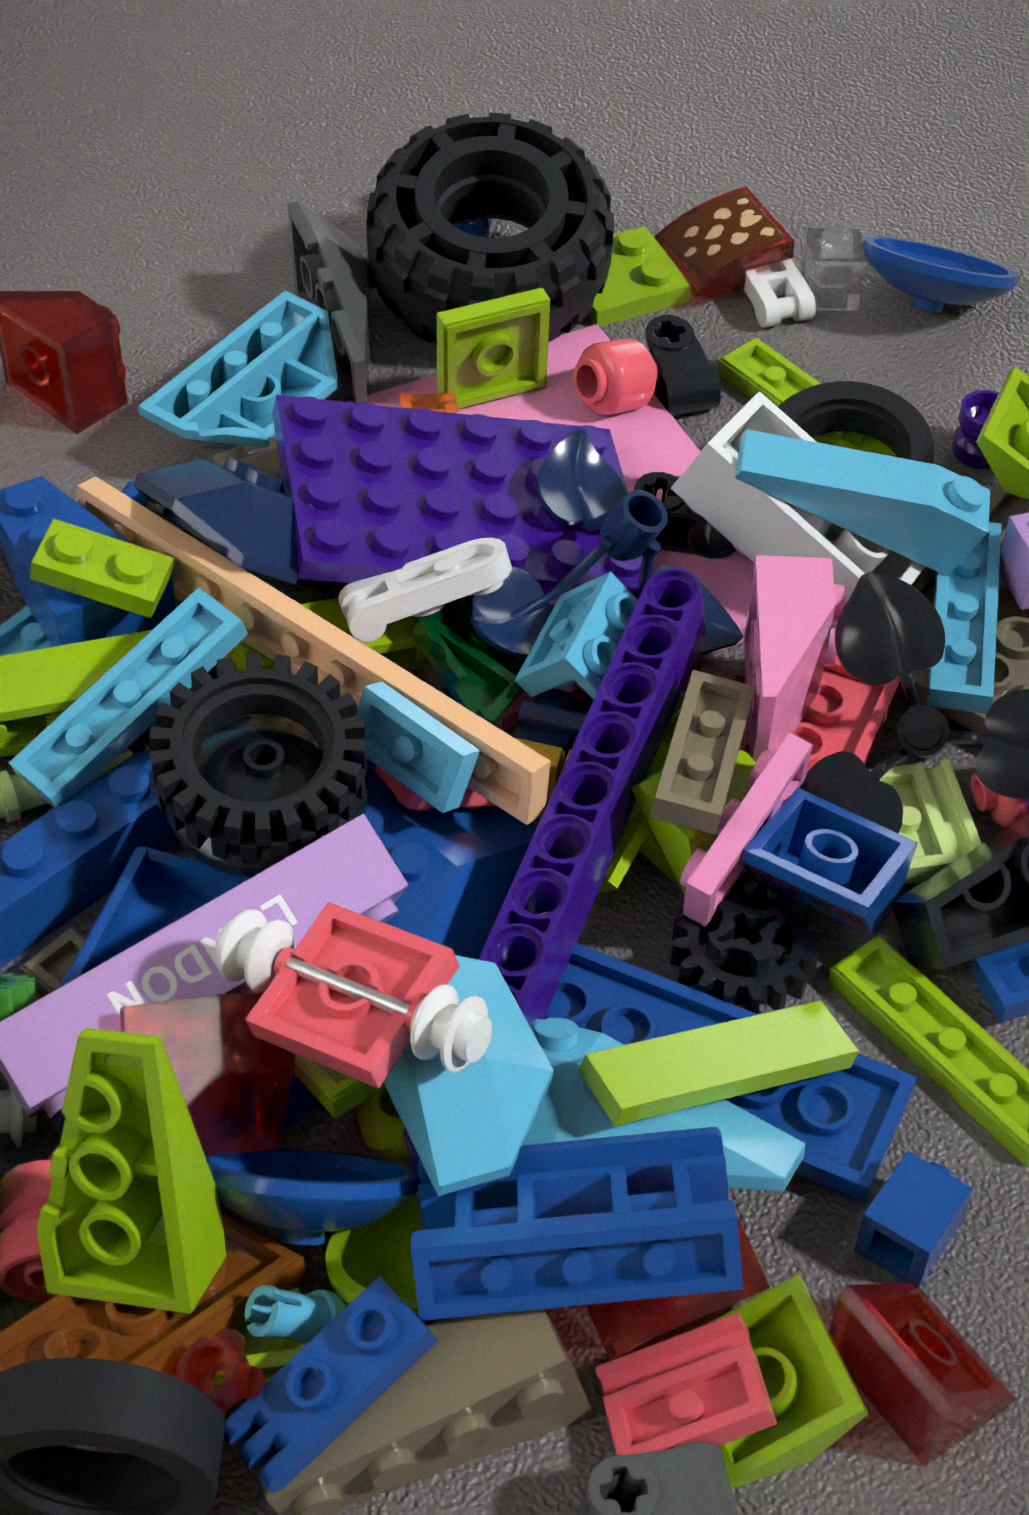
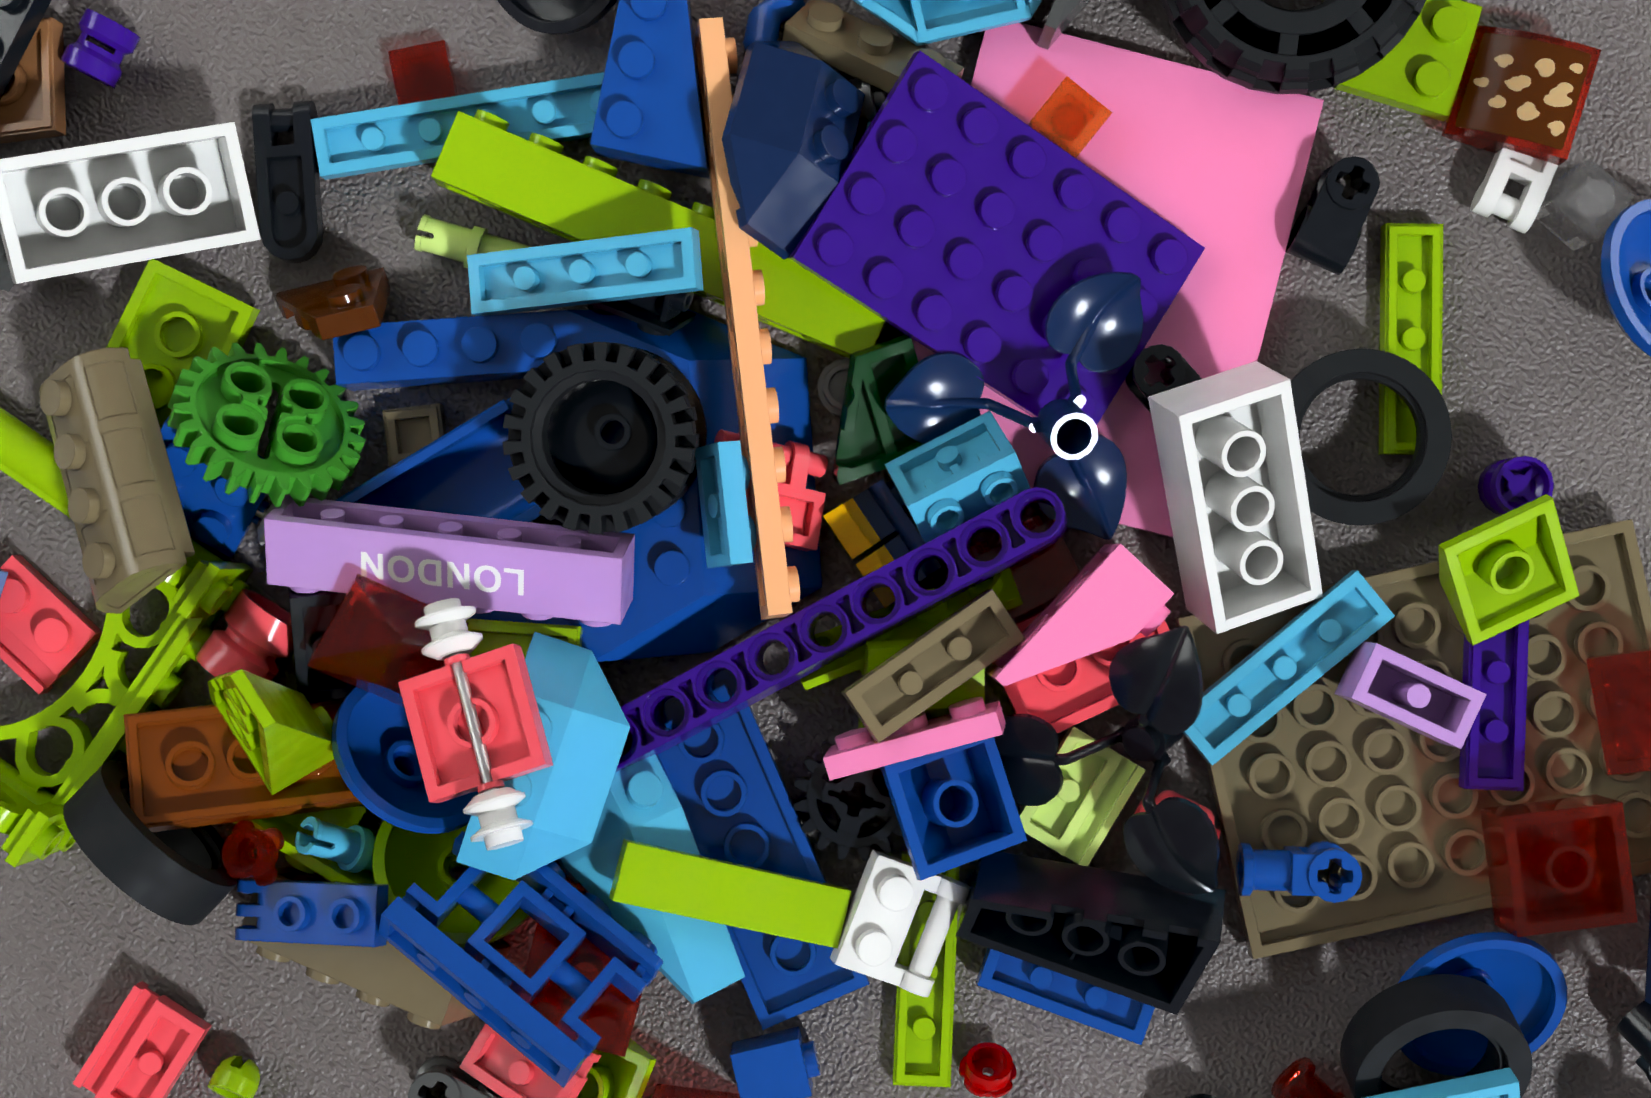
camera: 50 degrees right, 40 degrees up
(101, 568) = (646, 134): lime plate -> none
(424, 586) = (878, 340): white plate -> none
(494, 348) = (1171, 101): lime plate -> none
(615, 376) = (1260, 197): coral head -> none
(871, 1010) = (882, 917): none -> white plate
(884, 498) = (1297, 537): medium azure wedge -> none

